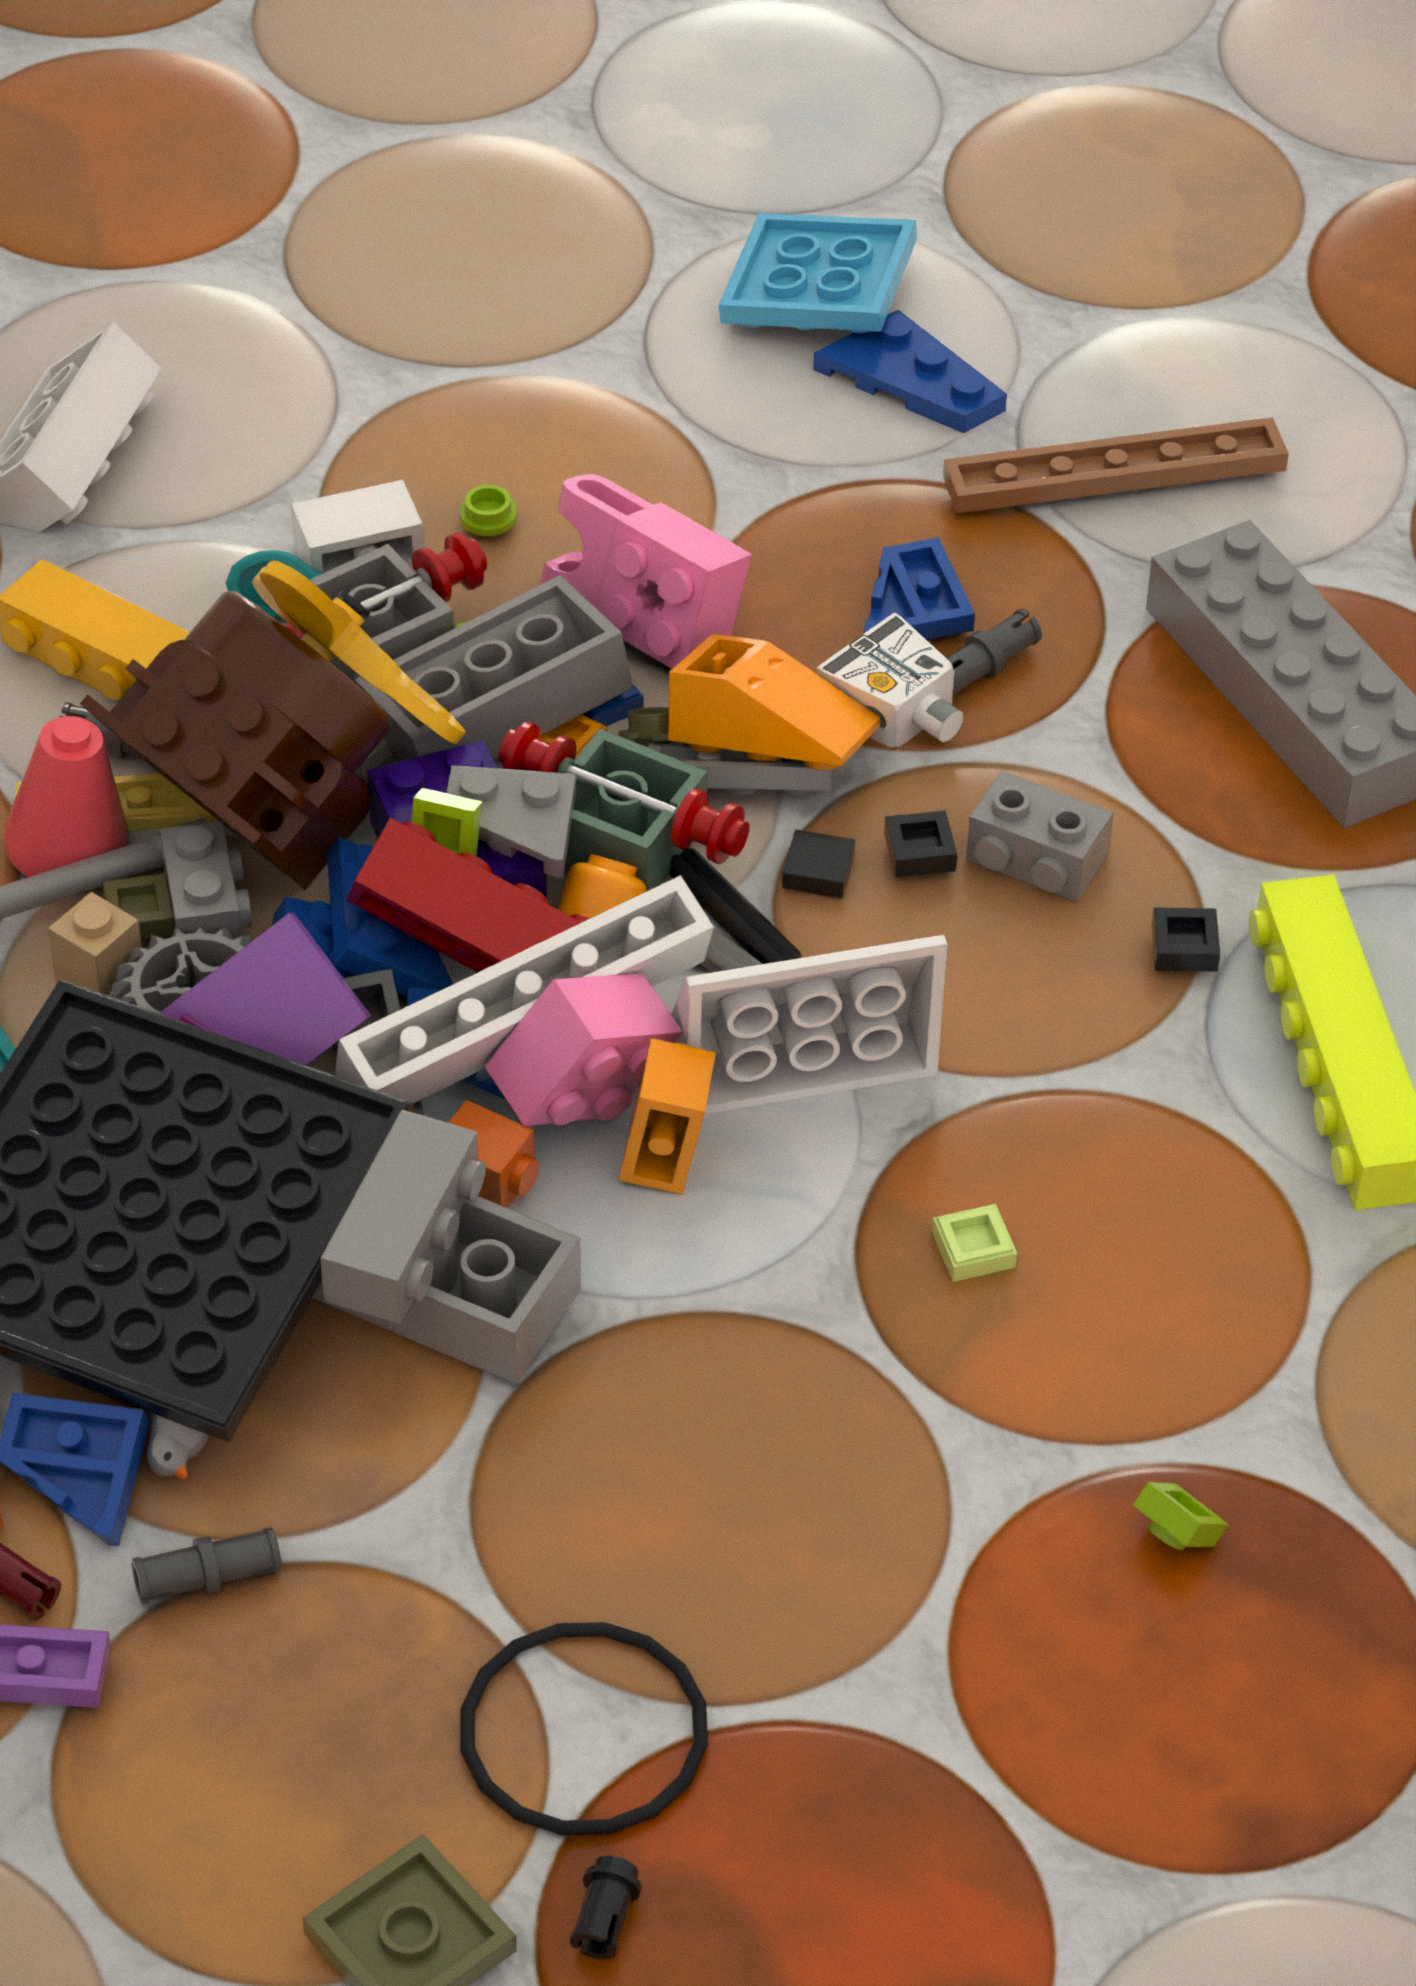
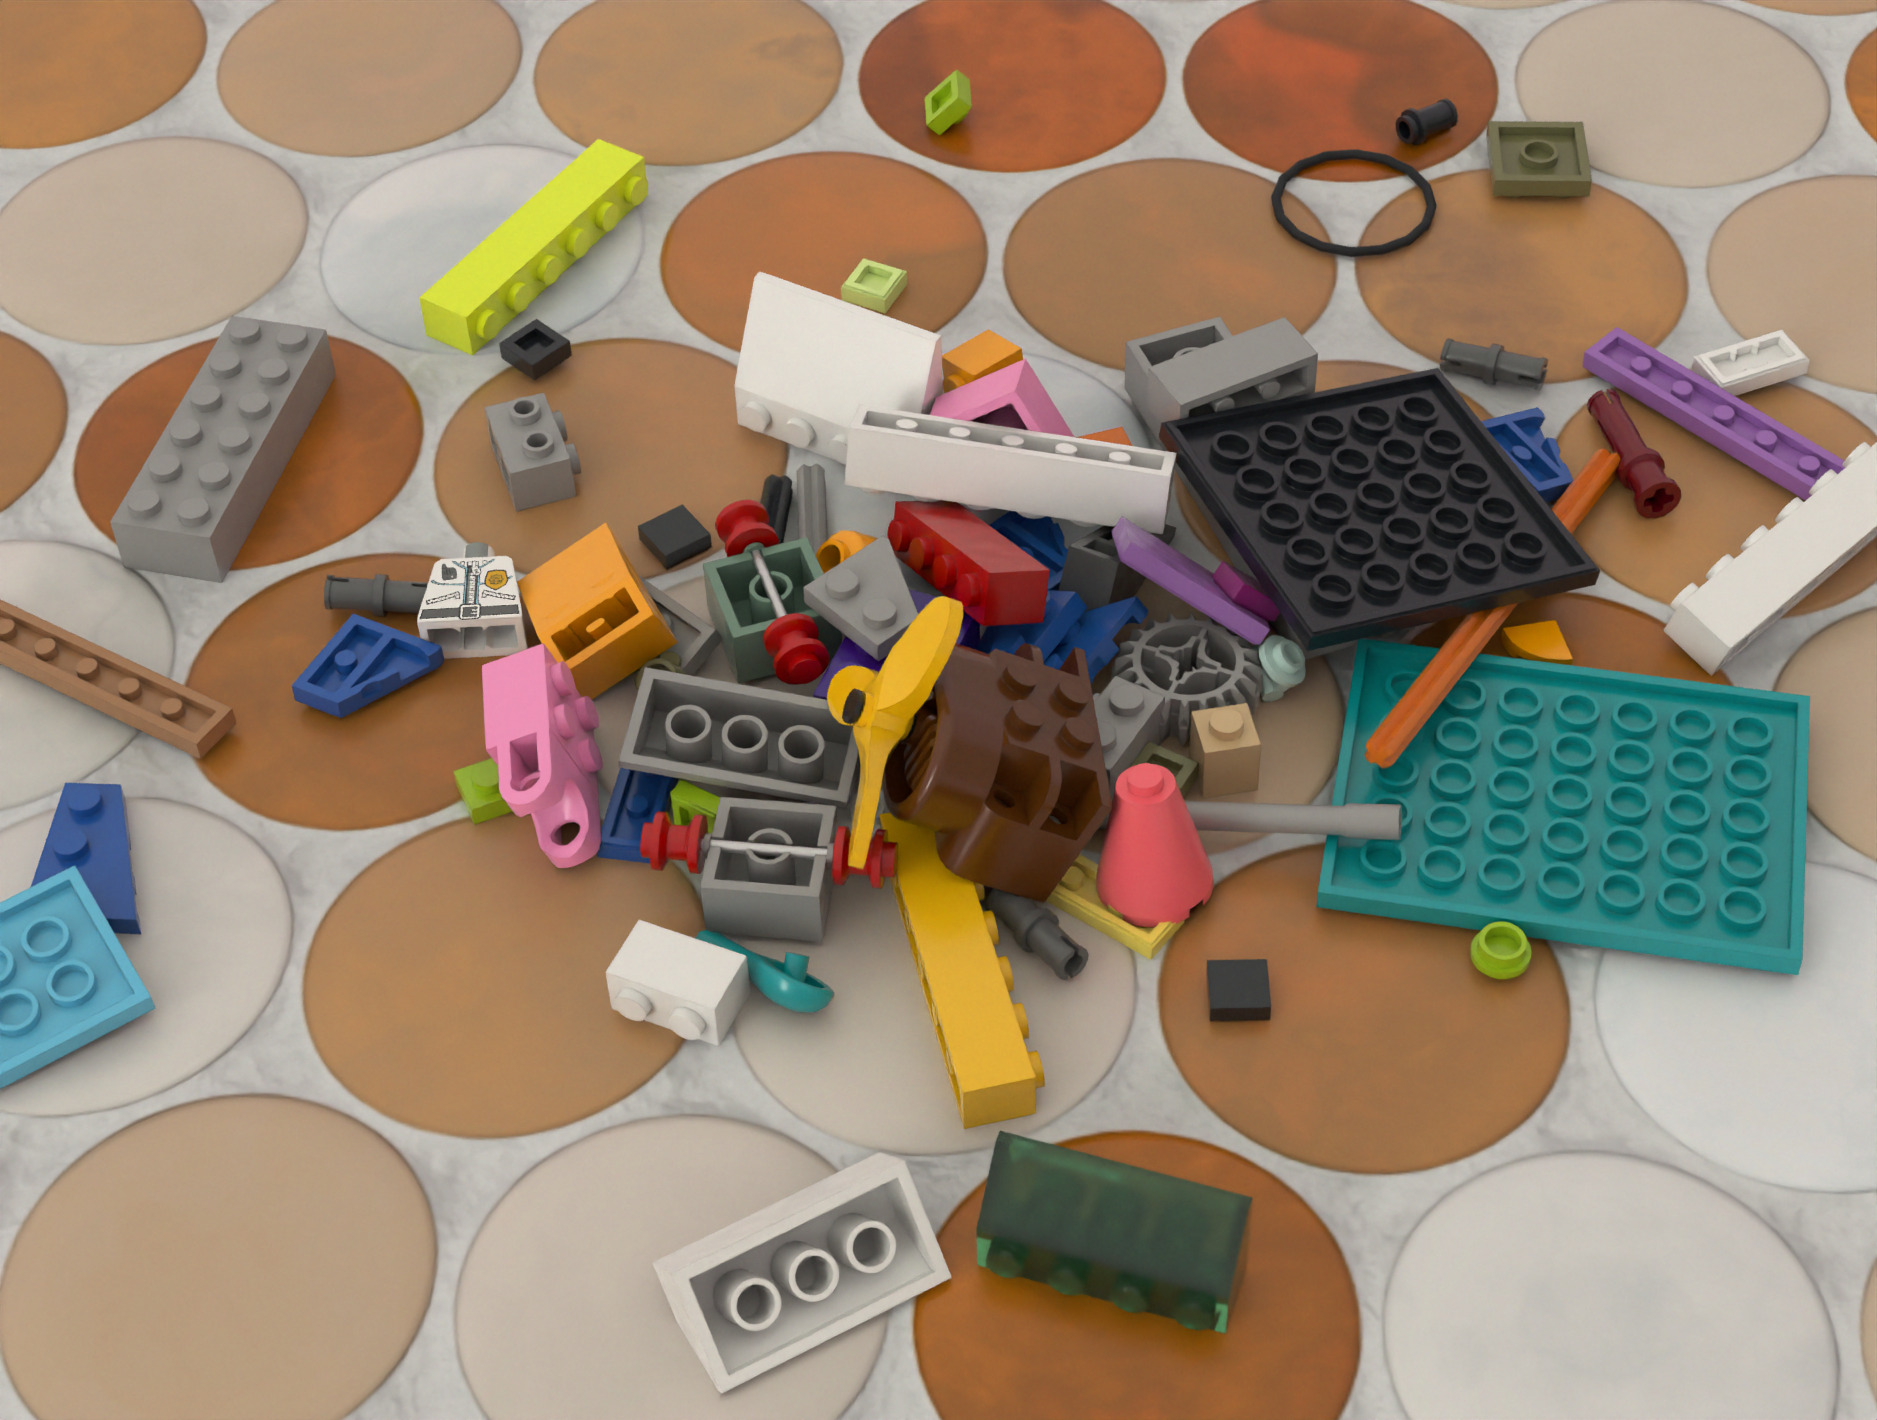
camera: 135 degrees left, 0 degrees up
(449, 818) = (930, 585): lime plate -> none
(488, 511) = (551, 949): lime plate -> none
(920, 843) = (602, 497): black plate -> none

